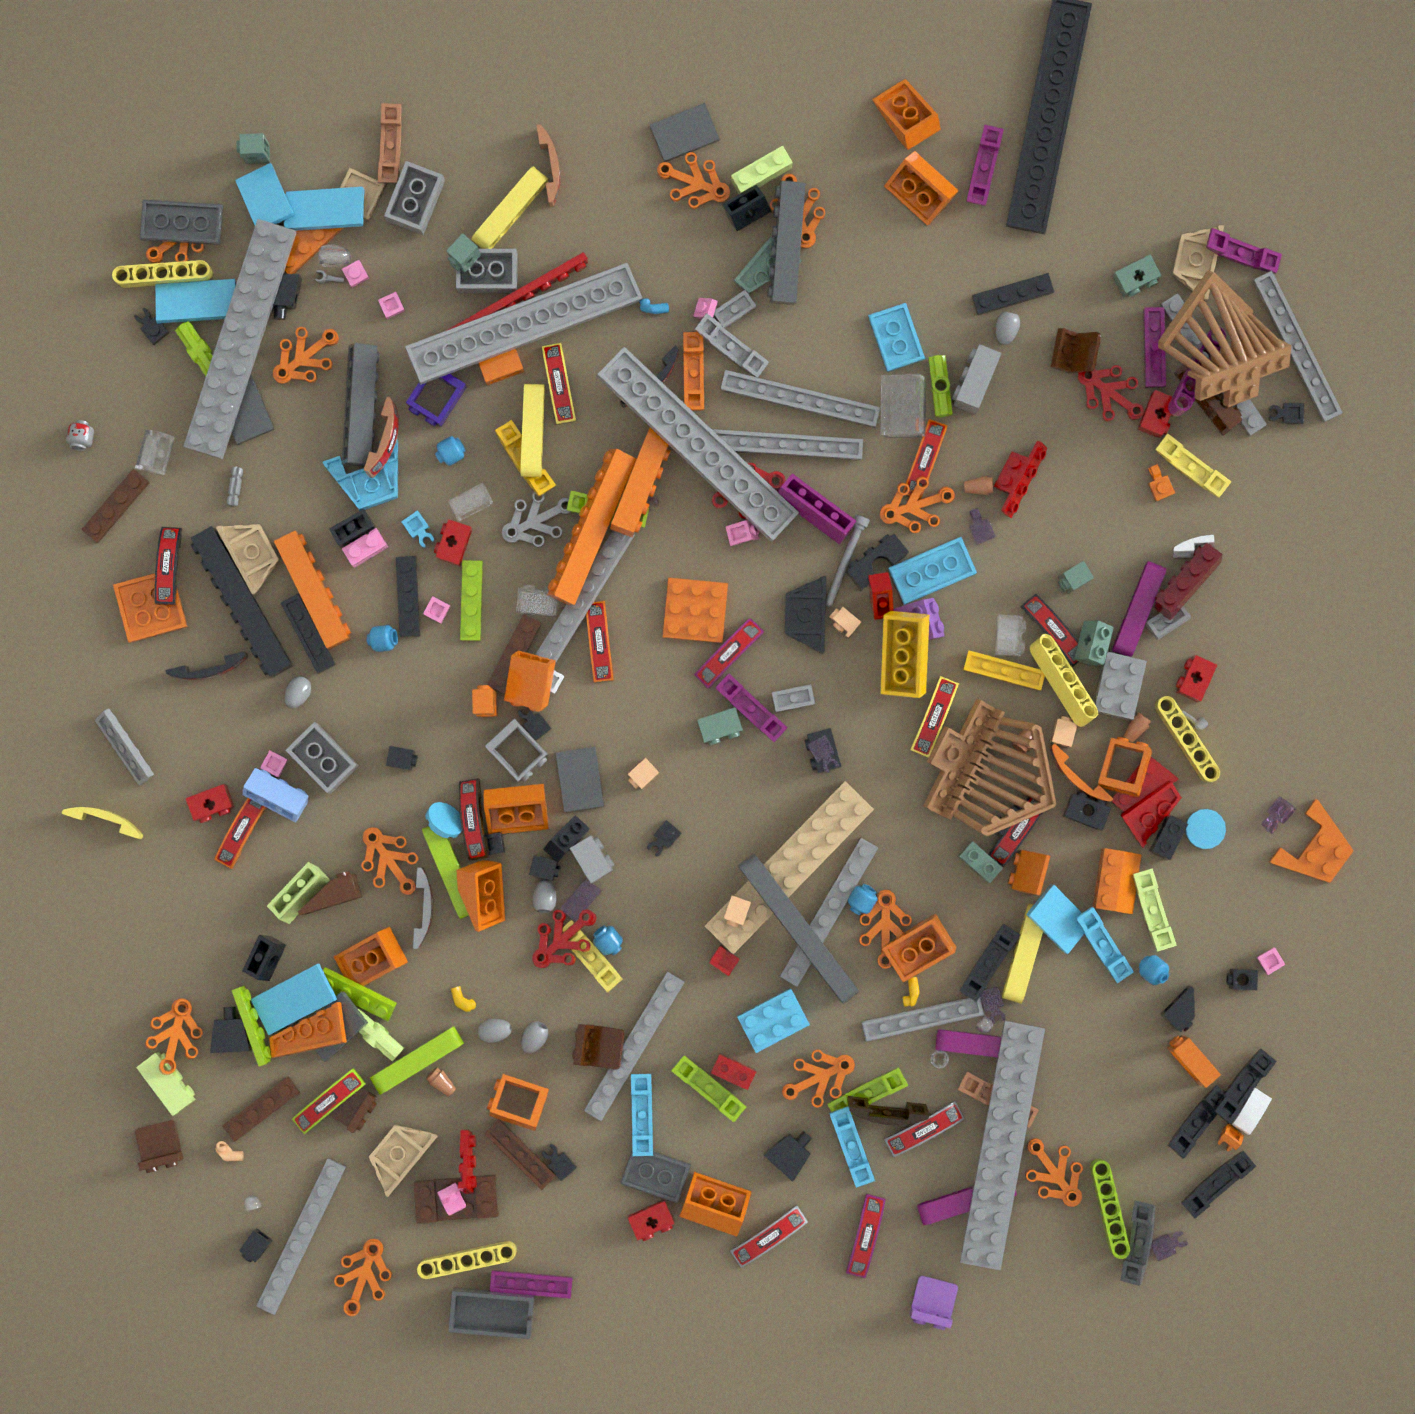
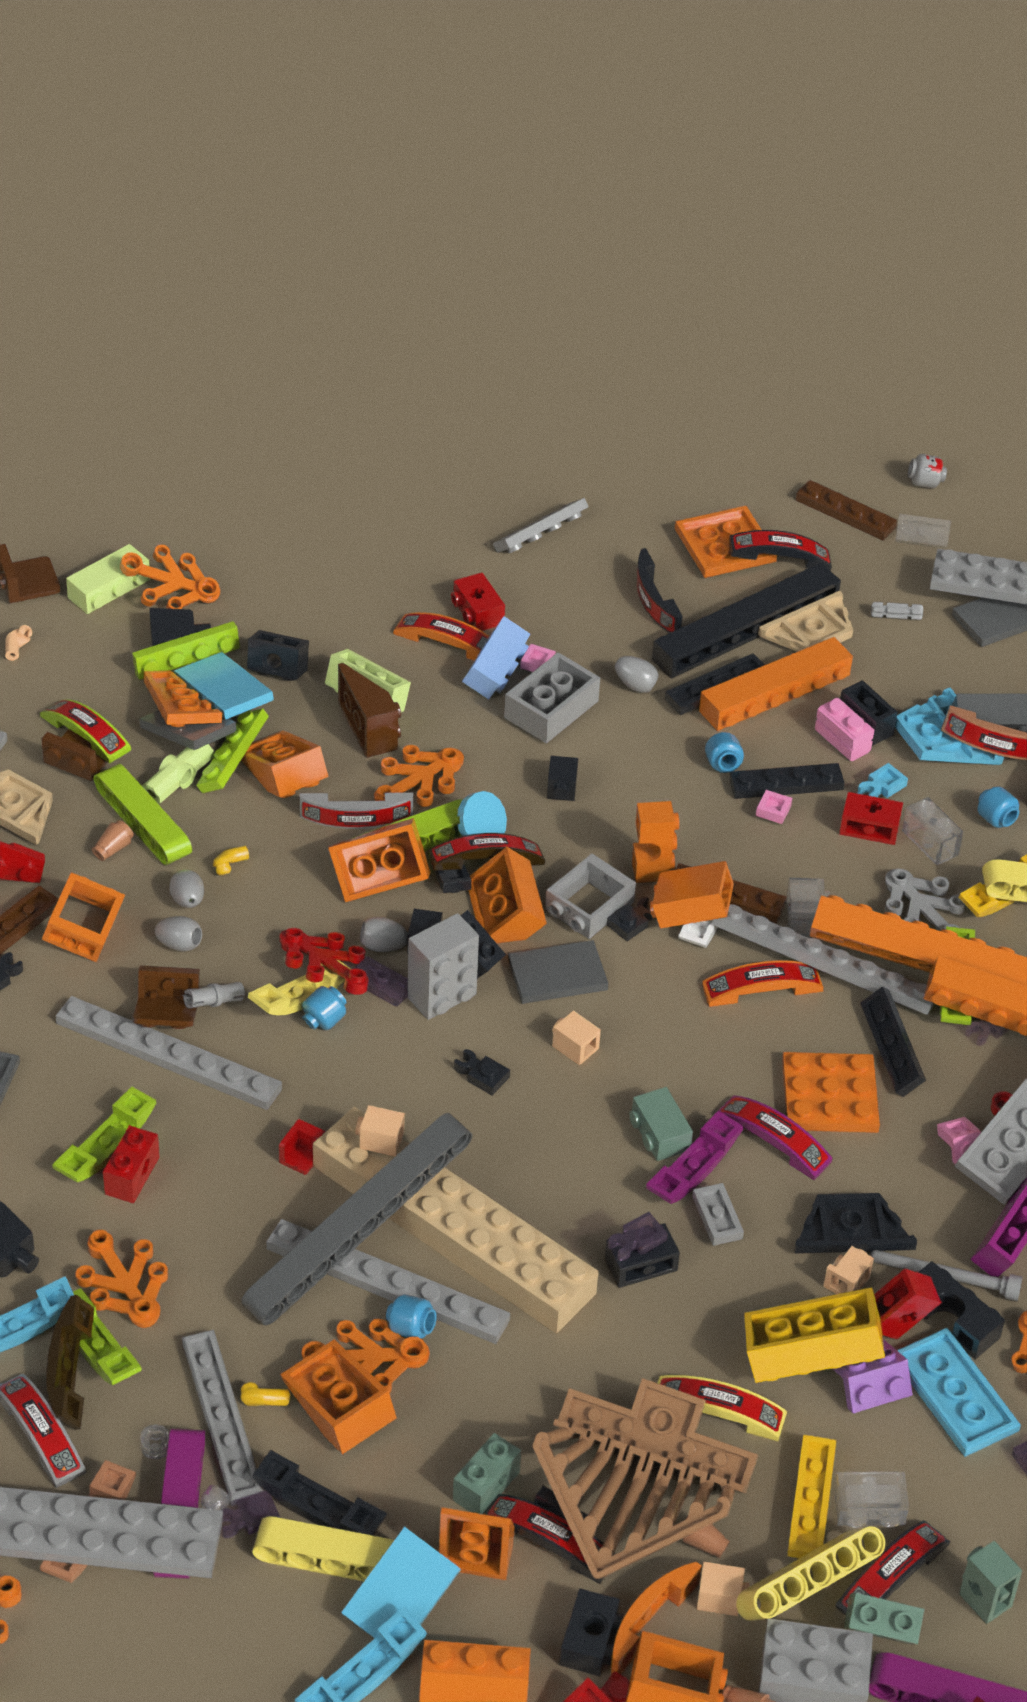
camera: 85 degrees right, 40 degrees down
(126, 827) = (441, 529): light yellow slope -> none
(261, 1109) = (74, 671): reddish brown plate -> none
(471, 600) = (794, 845): lime plate -> none
(593, 1014) = (214, 995): none -> light grey pin
(642, 1115) = (64, 1065): medium azure slope -> none
(659, 562) = (893, 1041): none -> black plate
(773, 1020) = (212, 1210): medium azure brick -> none

